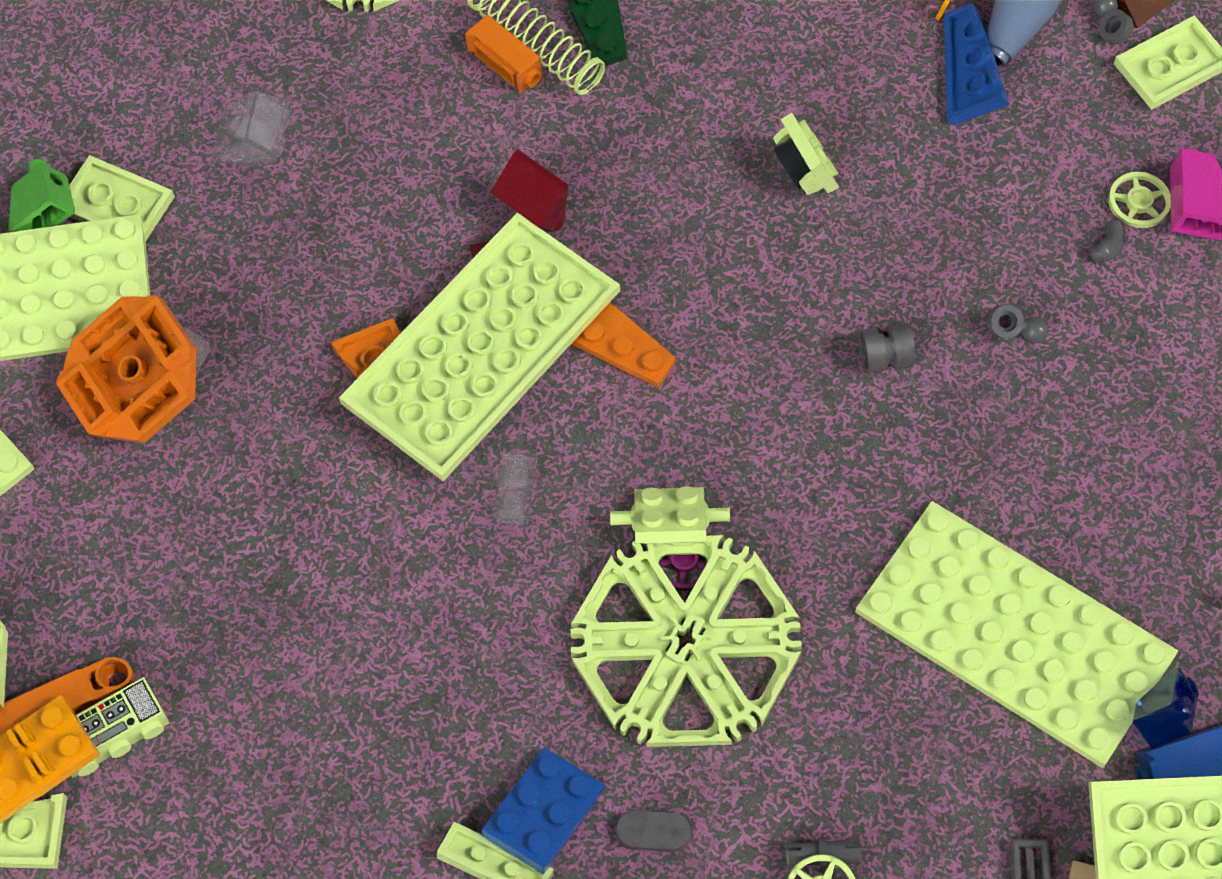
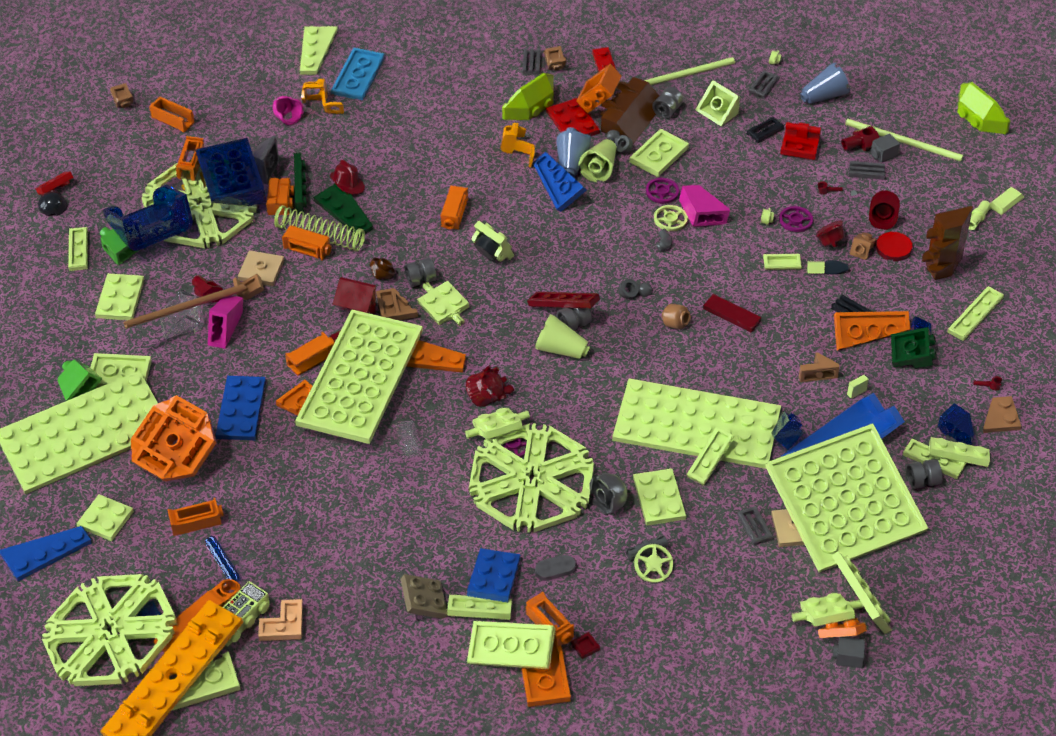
camera: 25 degrees left, 15 degrees down
(129, 612) = (222, 559): none -> clear blue axle
(146, 530) = (195, 517): none -> orange window
(175, 59) = (119, 297): none -> yellowish green plate
(176, 779) = (287, 626): none -> light nougat plate
(249, 121) = (184, 306): none -> medium nougat piece
(275, 334) = (240, 408): none -> blue plate
(310, 96) = (203, 287): none -> dark red piece
(312, 159) = (223, 320): none -> dark pink slope
(377, 110) = (253, 286): none -> medium nougat bracket
(410, 810) = (423, 596): none -> dark tan plate
(415, 77) = (263, 264): none -> tan plate
(422, 271) = (309, 354): none -> orange window
(595, 223) = (394, 306): none -> medium nougat wing
(605, 144) = (382, 268): none -> reddish brown plate
(664, 173) = (420, 272): none -> flat silver wheel
(681, 243) = (443, 303): none -> yellowish green plate
(683, 436) = (487, 387): none -> dark red hair
(773, 62) = (454, 207): none -> orange window
(802, 724) = (609, 492): none -> flat silver cylinder
(845, 387) = (561, 339): none -> yellowish green cone
(880, 312) = (563, 299): none -> dark red tile
(888, 757) = (659, 497): none -> yellowish green plate
(1008, 711) = (710, 456): none -> yellowish green tile
(1058, 48) = (598, 161): none -> yellowish green cone
(1065, 405) = (676, 316): none -> medium nougat head
(1147, 139) = (662, 190): none -> magenta wheel
(1169, 429) = (732, 313): none -> dark red tile

